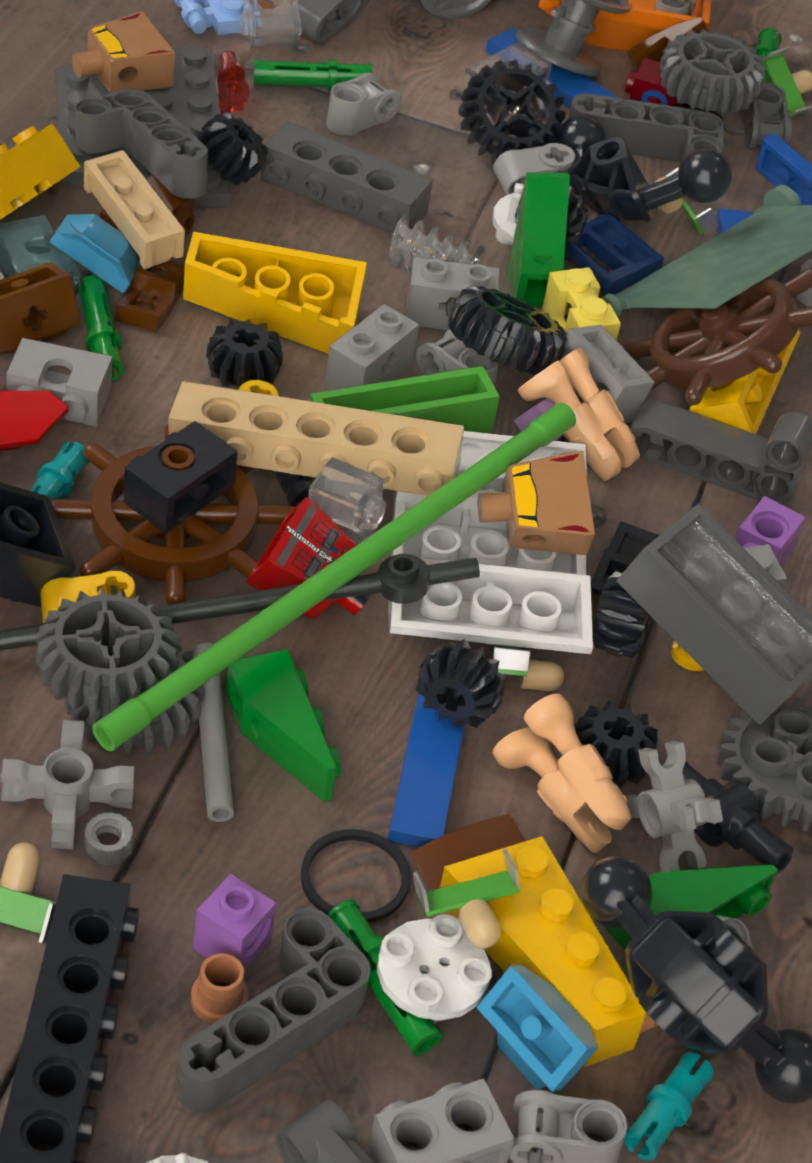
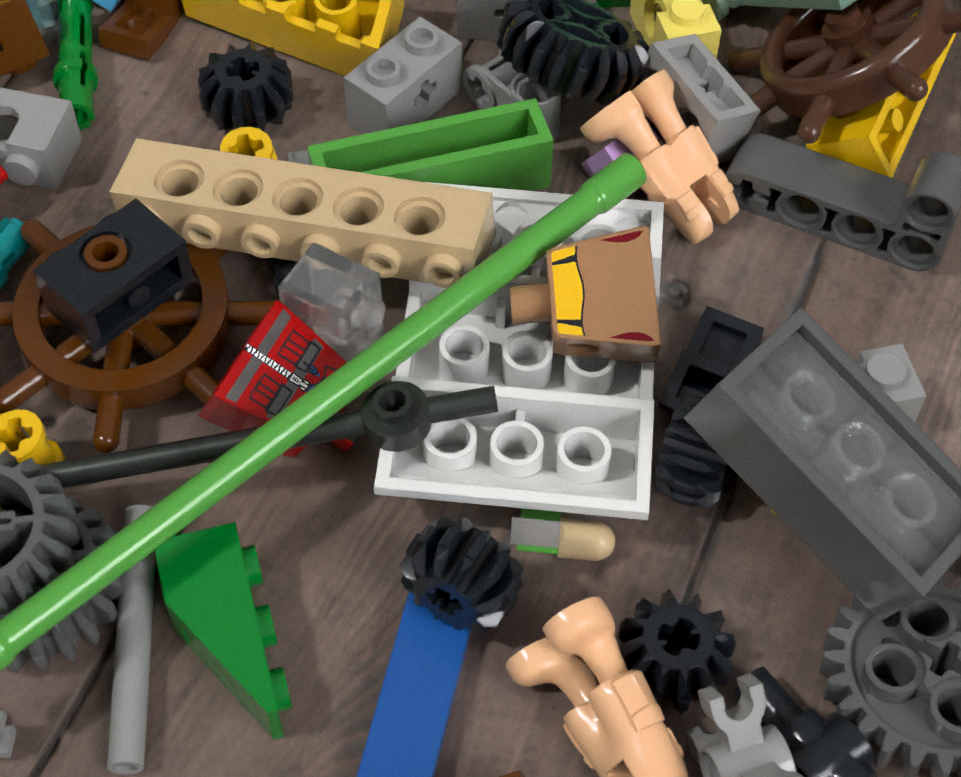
camera: 10 degrees right, 10 degrees up
(771, 525) = (906, 314): medium lavender brick -> none

